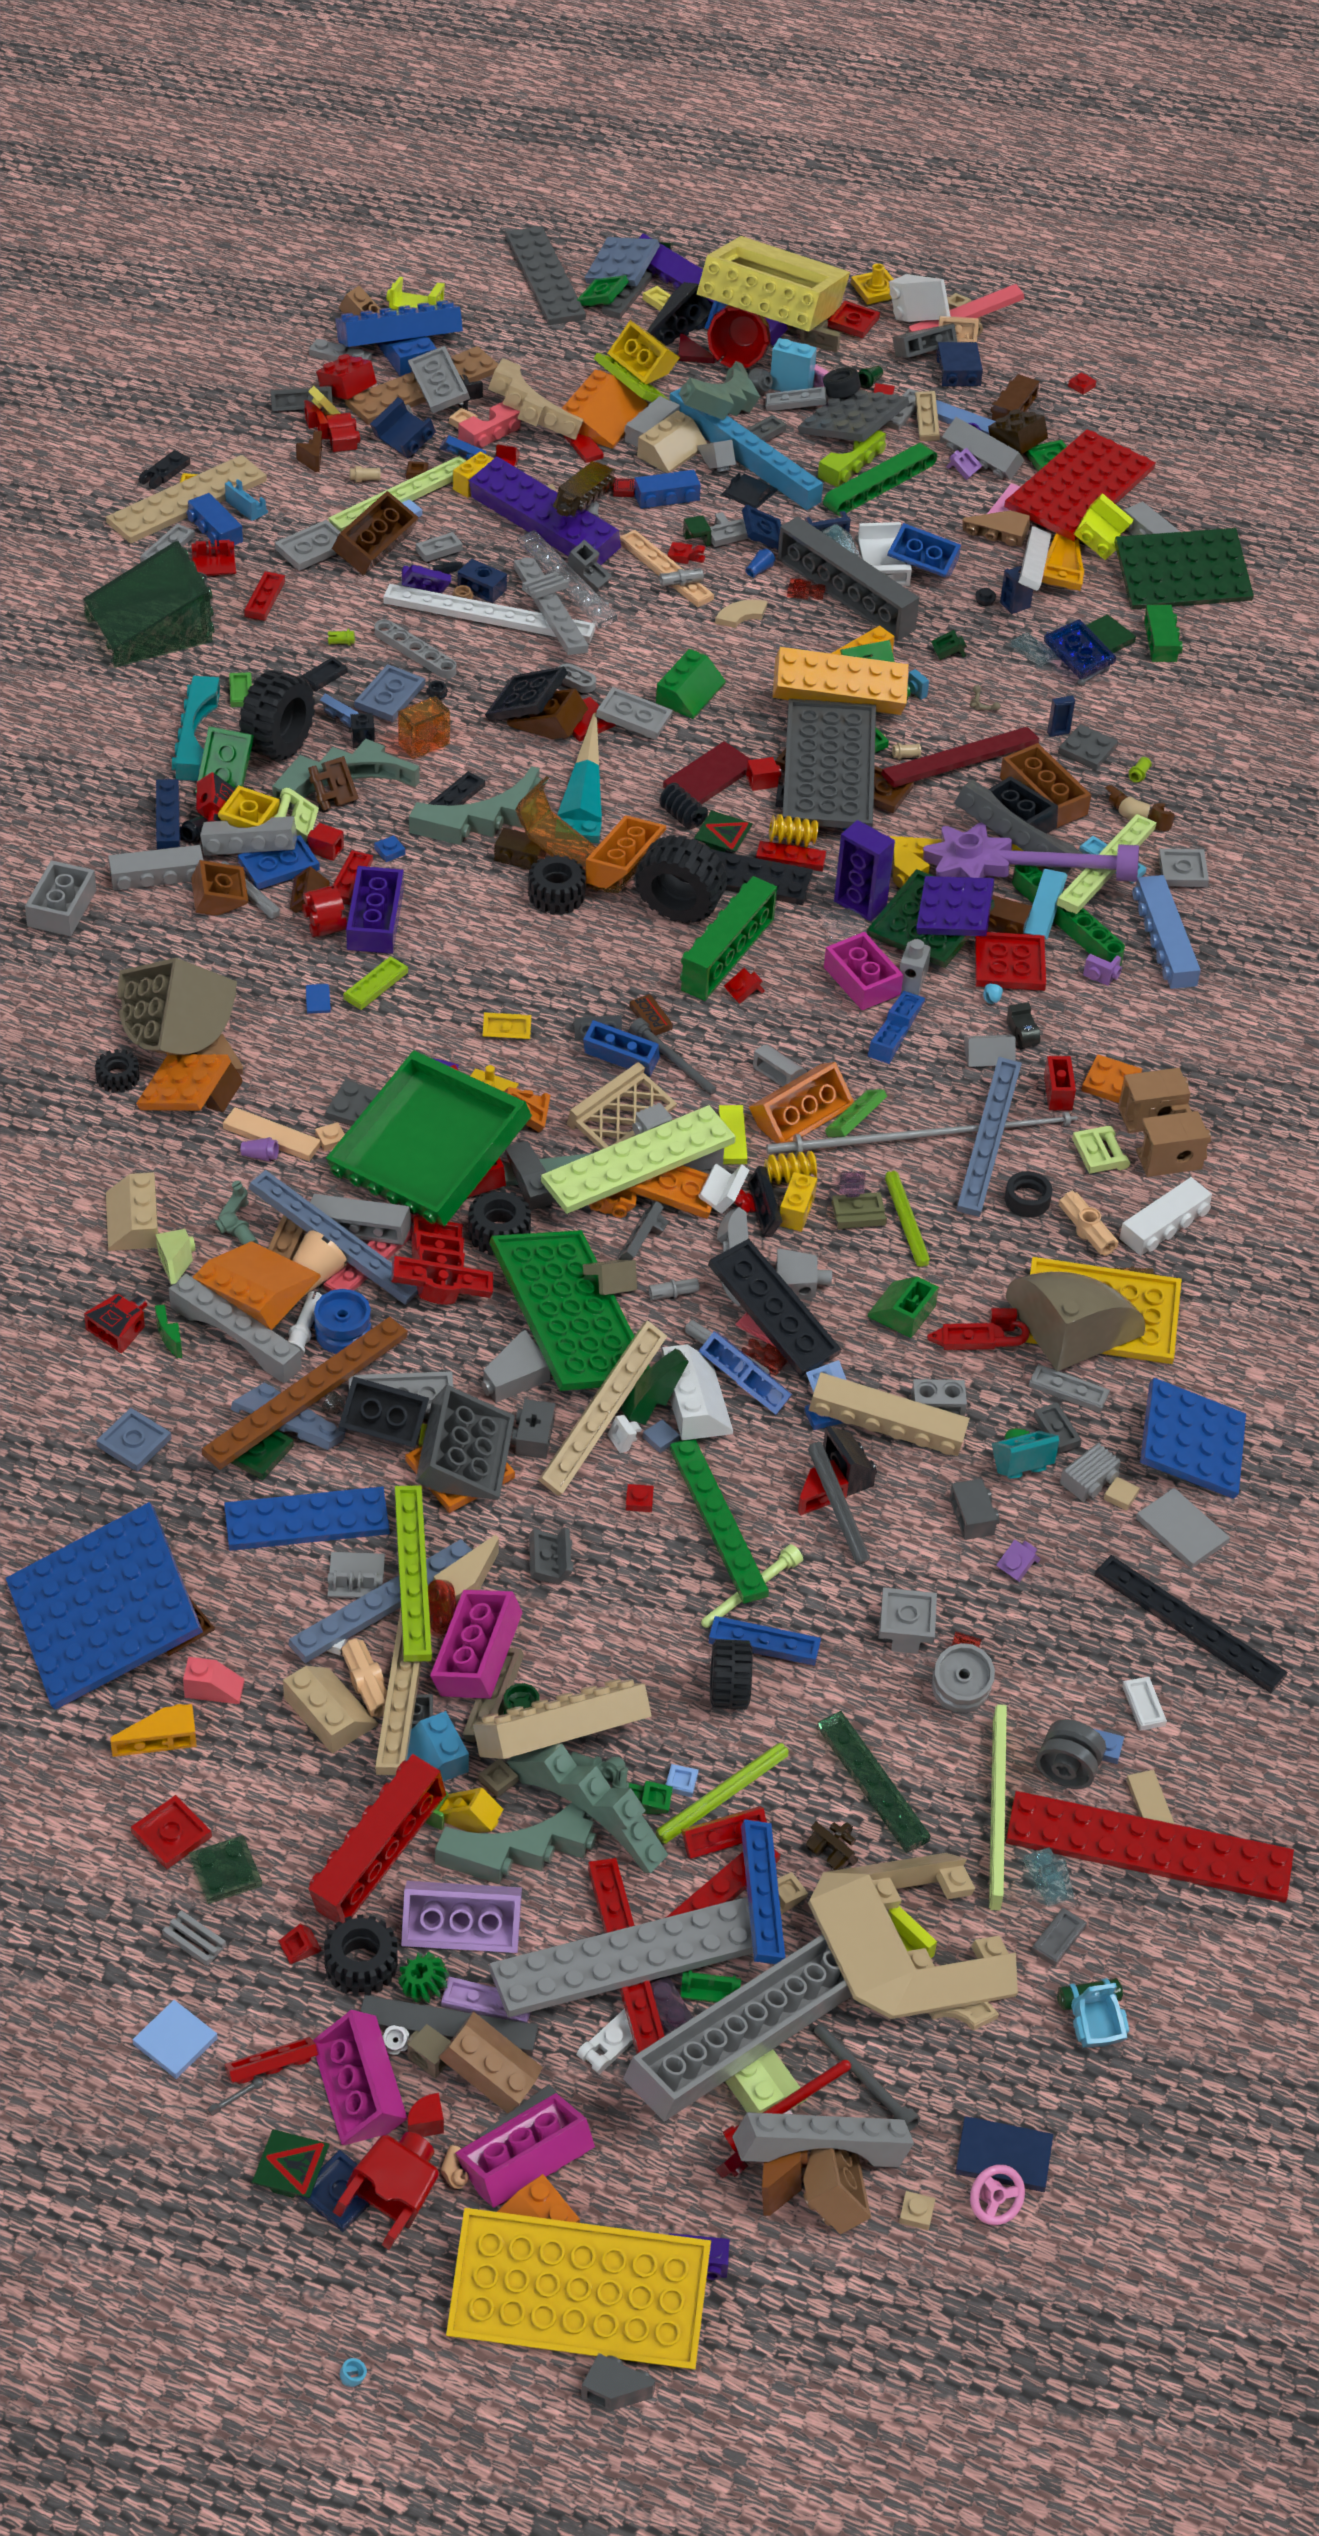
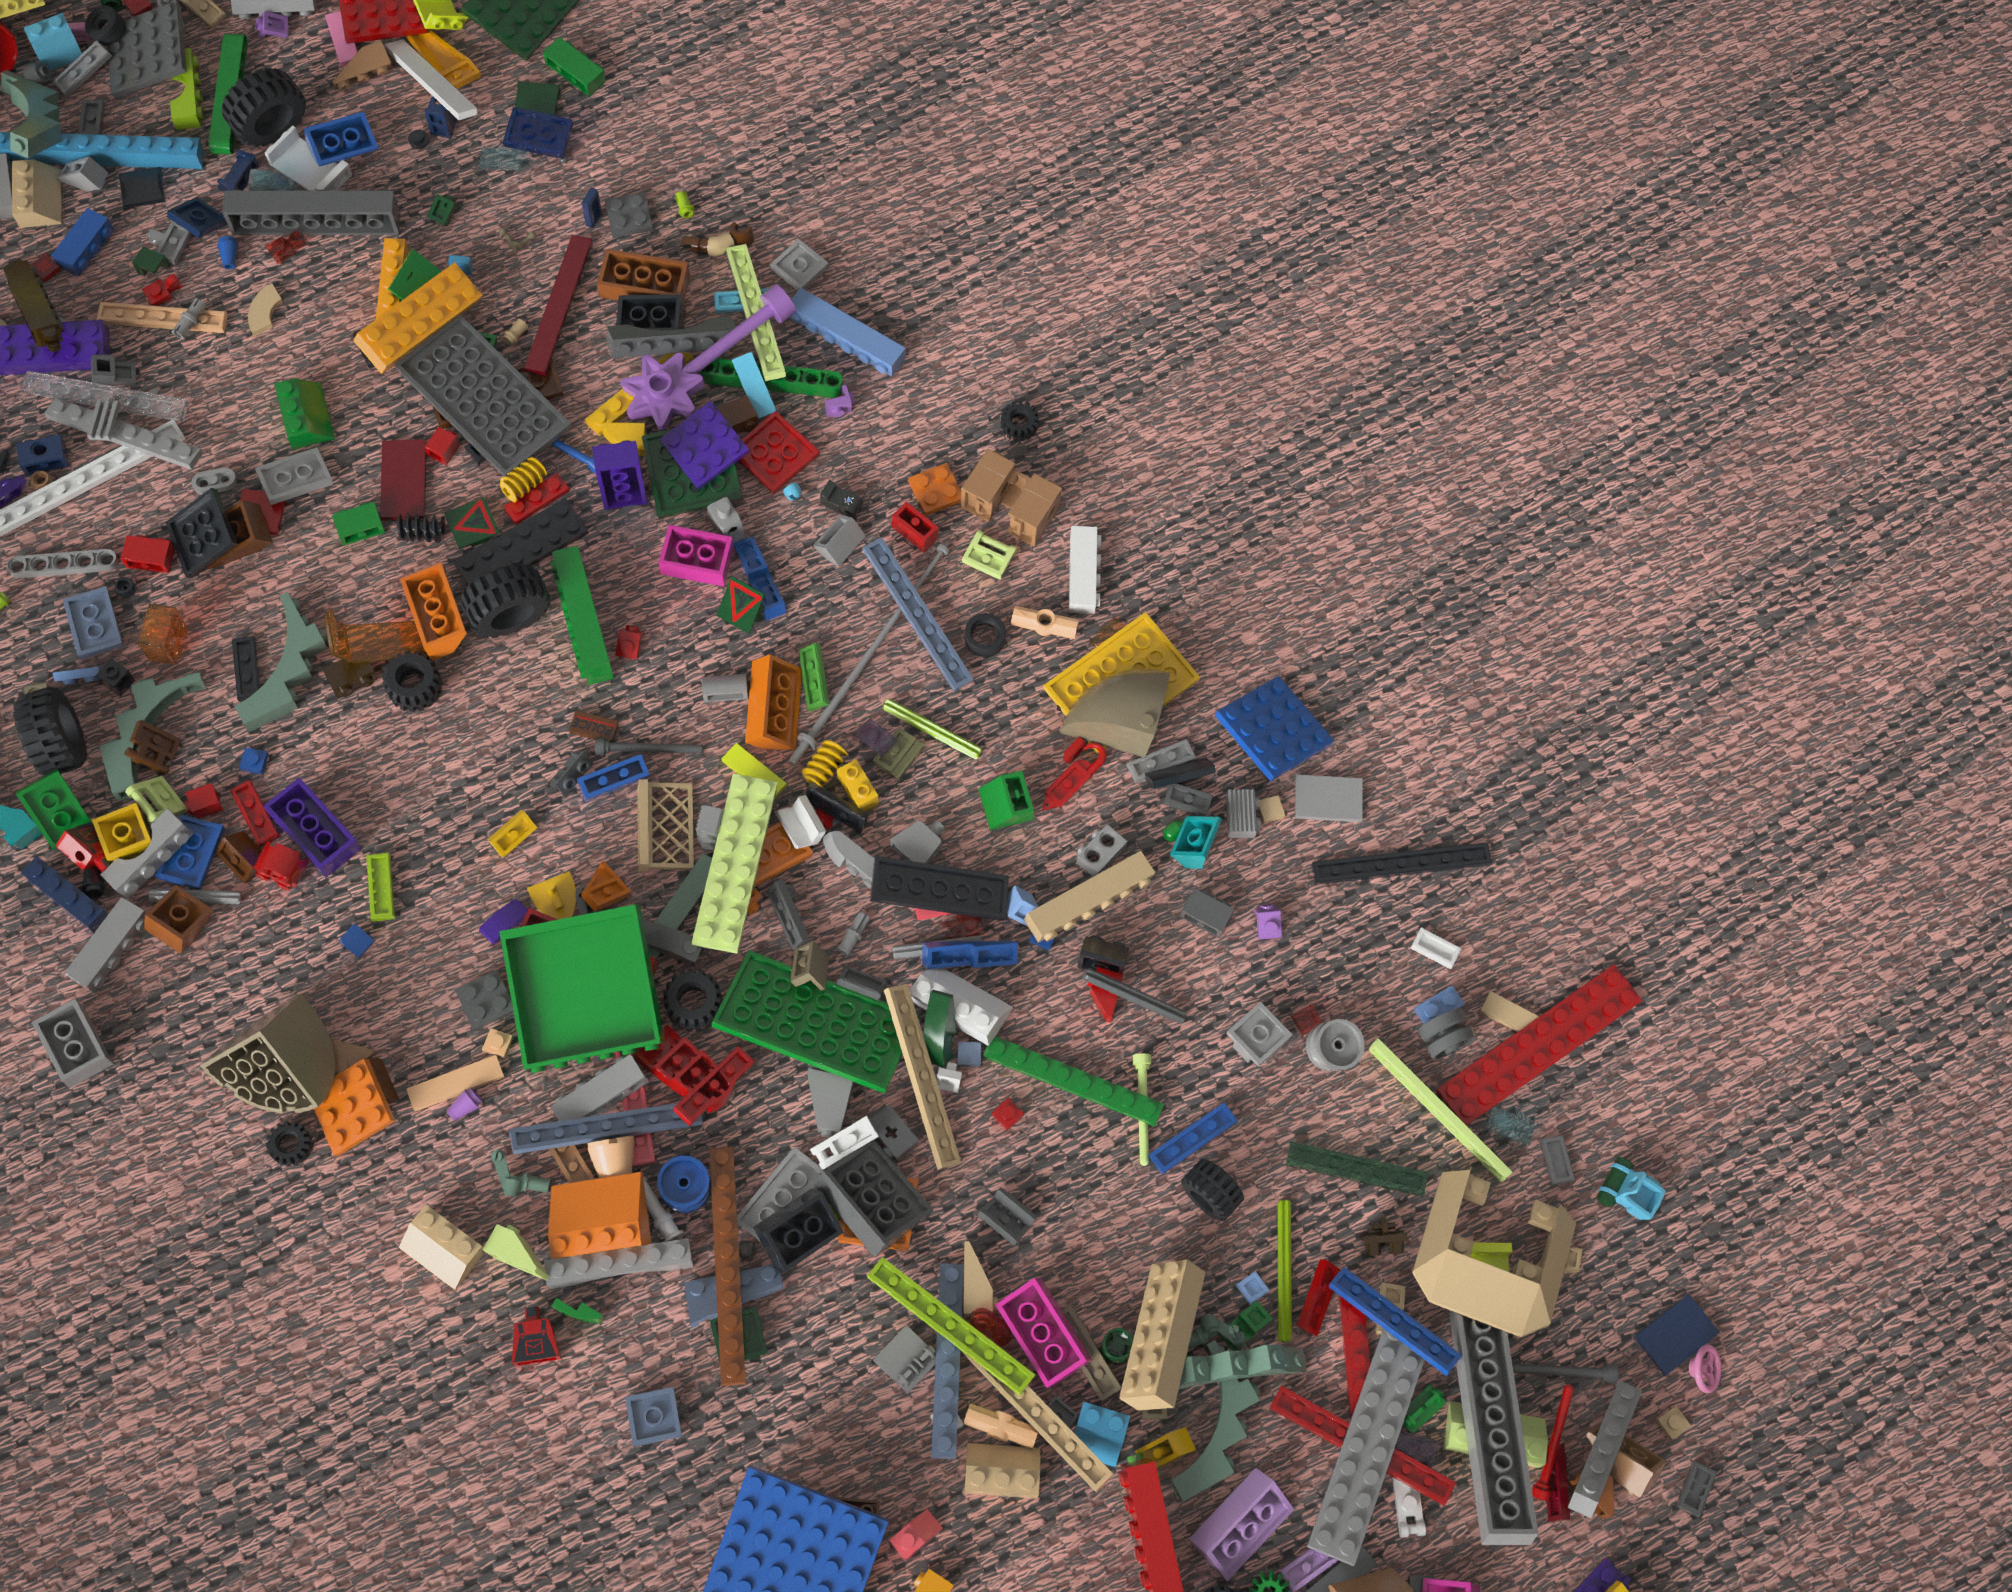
camera: 50 degrees left, 20 degrees up
(306, 1518) = (827, 1352): blue plate -> none
(325, 673) = (20, 650): black tile -> none
(476, 682) = (147, 553): none -> red brick
(497, 1393) = (845, 1142): none -> white plate
(582, 796) = (347, 593): teal plate -> none
(634, 1314) = (862, 983): none -> dark grey tile
(642, 772) = (358, 523): none -> green brick
(857, 1026) = (741, 605): none -> dark green piece
(874, 2272) = (1696, 1488): none -> dark grey plate
(894, 472) = (263, 106): none -> black tyre
(1072, 1403) = (1180, 773): none -> black tile
(1236, 1097) = (1019, 410): none -> black tyre

